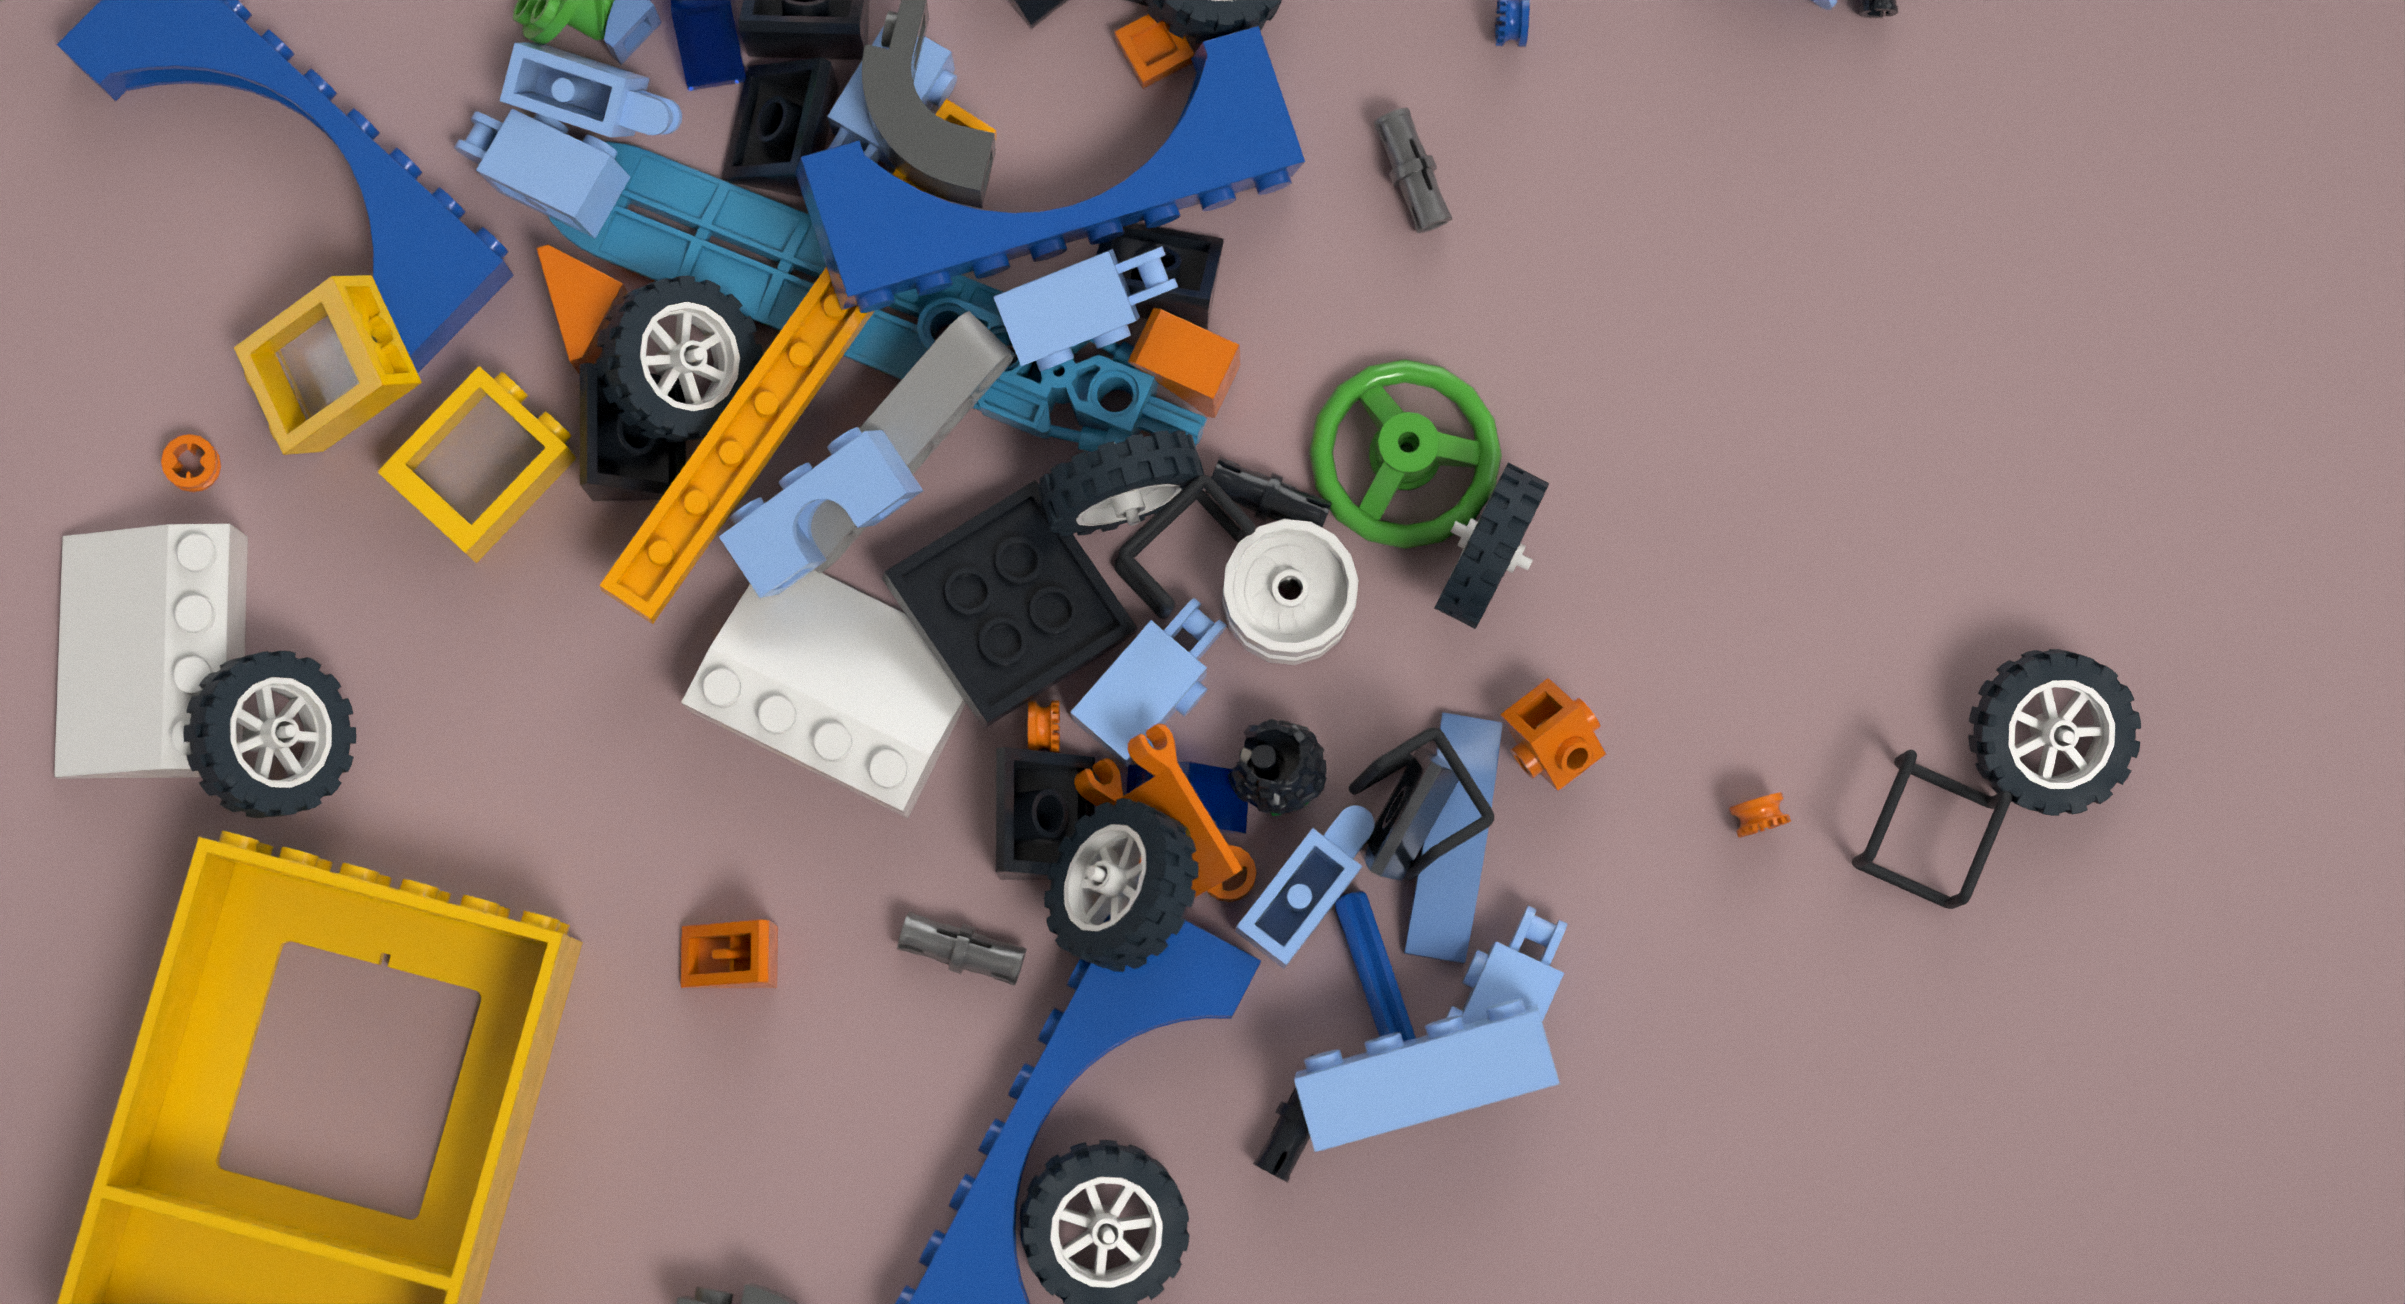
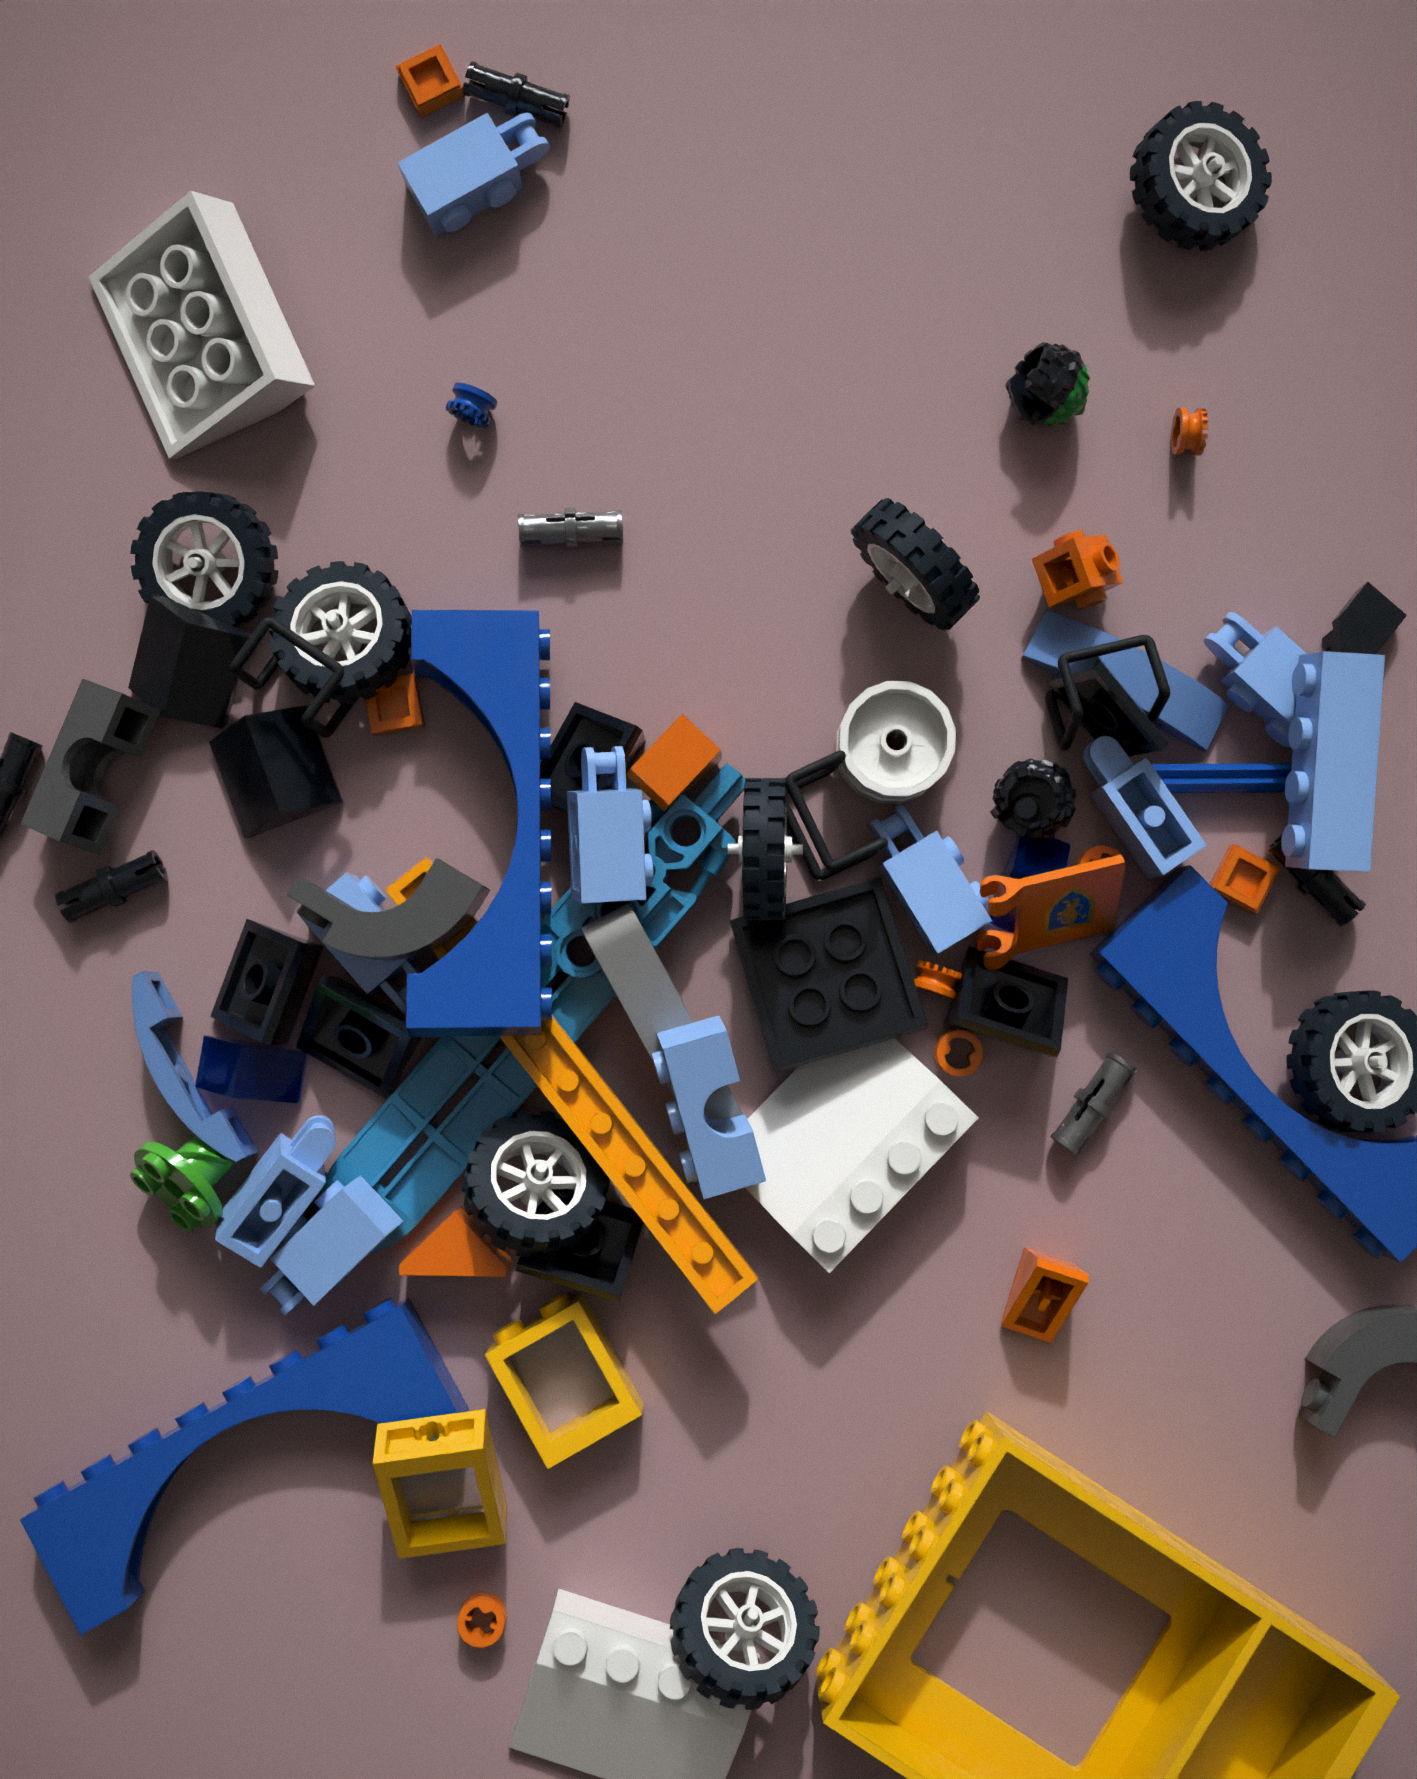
camera: 70 degrees left, 5 degrees up
(971, 762) = (943, 1047): none -> orange bush
(1142, 897) = (1118, 928): black wheel -> none
(1268, 494) = (804, 734): black pin -> none
(1271, 1040) = (1244, 879): none -> orange tile
(1405, 452) = (803, 614): bright green piece -> none
(1604, 1084) = (1363, 623): none -> black slope
(1752, 638) = (1049, 385): none -> black piece
(1907, 766) = (1195, 293): black piece -> none

